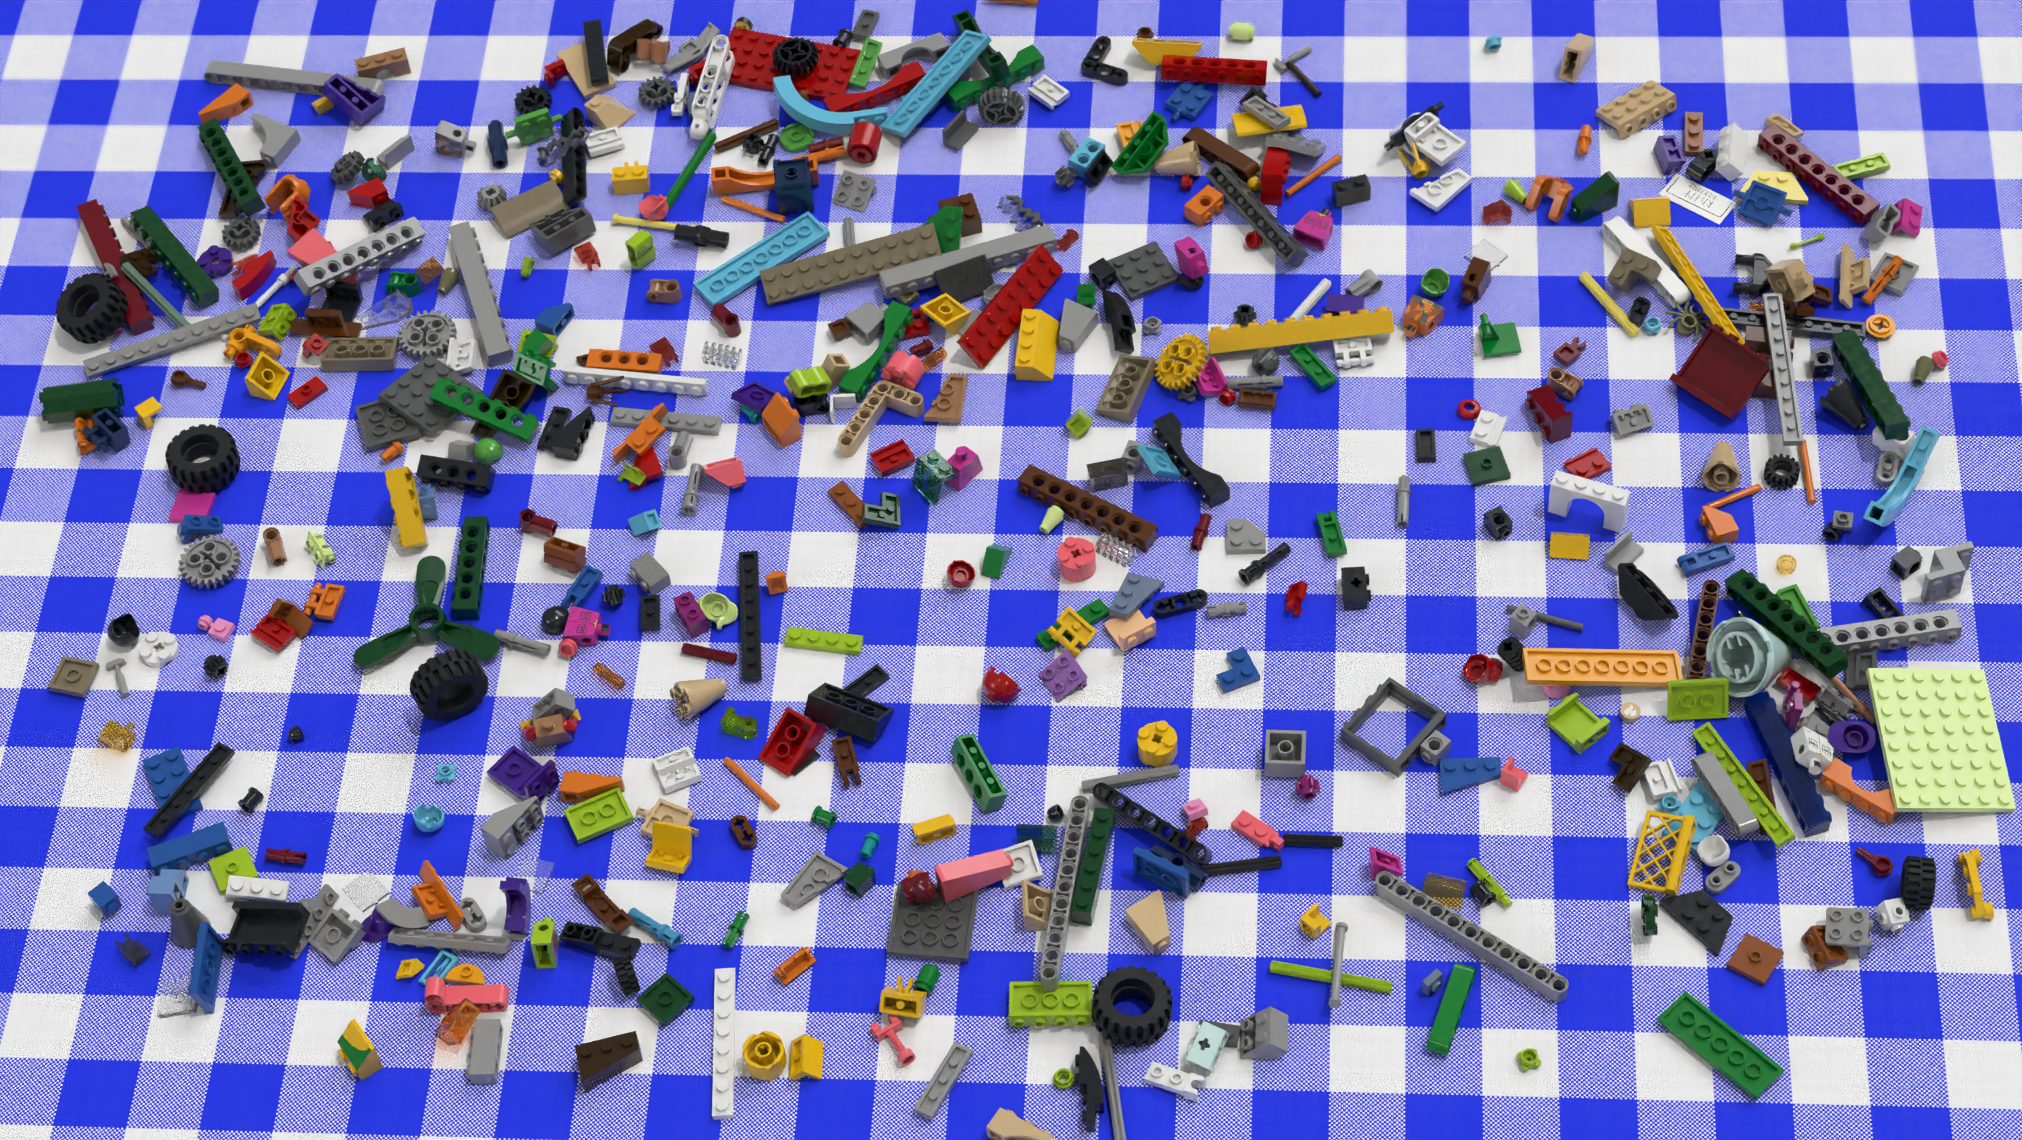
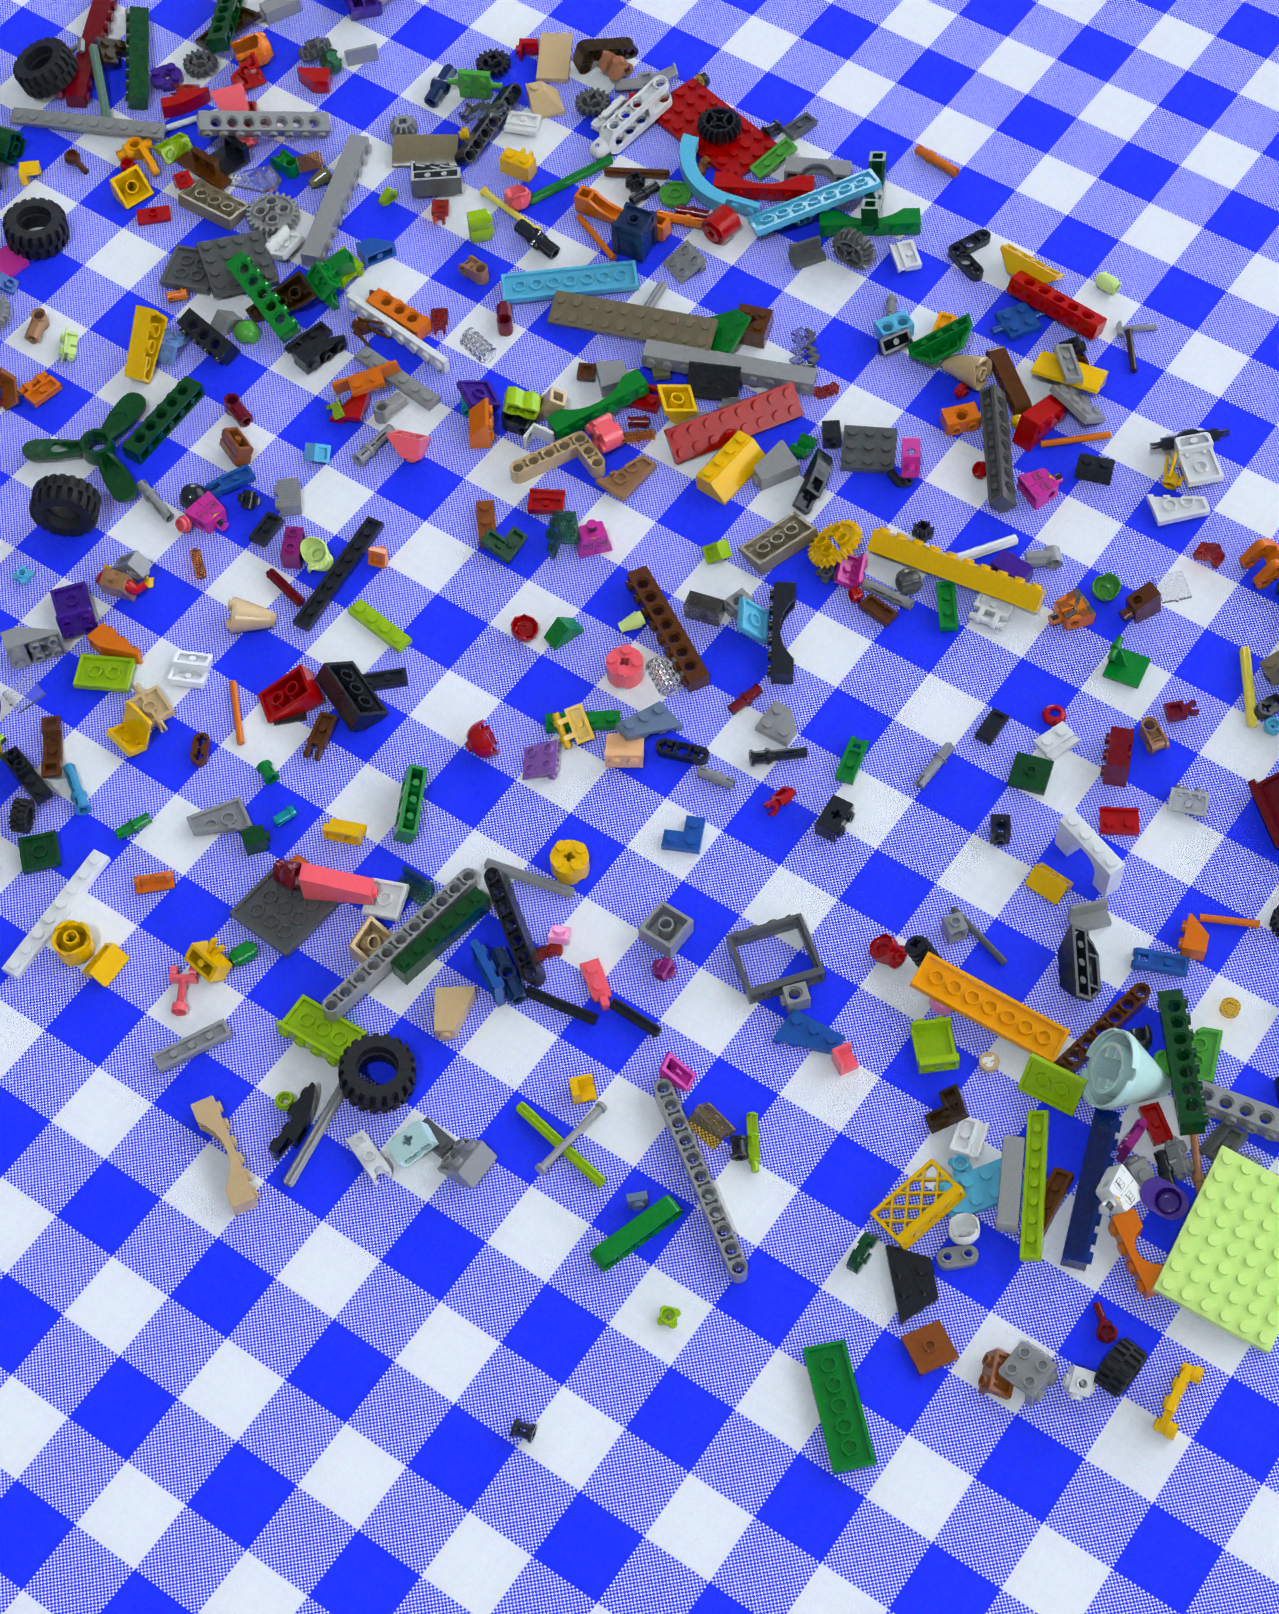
camera: 30 degrees right, 5 degrees up
(383, 215) = (314, 101): black bracket -> none
(452, 140) = (406, 64): light grey torso -> none
(595, 52) = (564, 51): black beam -> none
(739, 725) = (263, 661): clear neon green leg -> none
(1055, 813) = (450, 870): black hinge -> none
(1065, 176) = (863, 335): dark grey gear -> none
(1145, 32) = (1024, 245): reddish brown plate -> none
(1152, 325) = (840, 500): light grey plate -> none
(1515, 190) = (1240, 541): lime cone -> none
(1721, 469) = (1234, 888): tan cone -> none

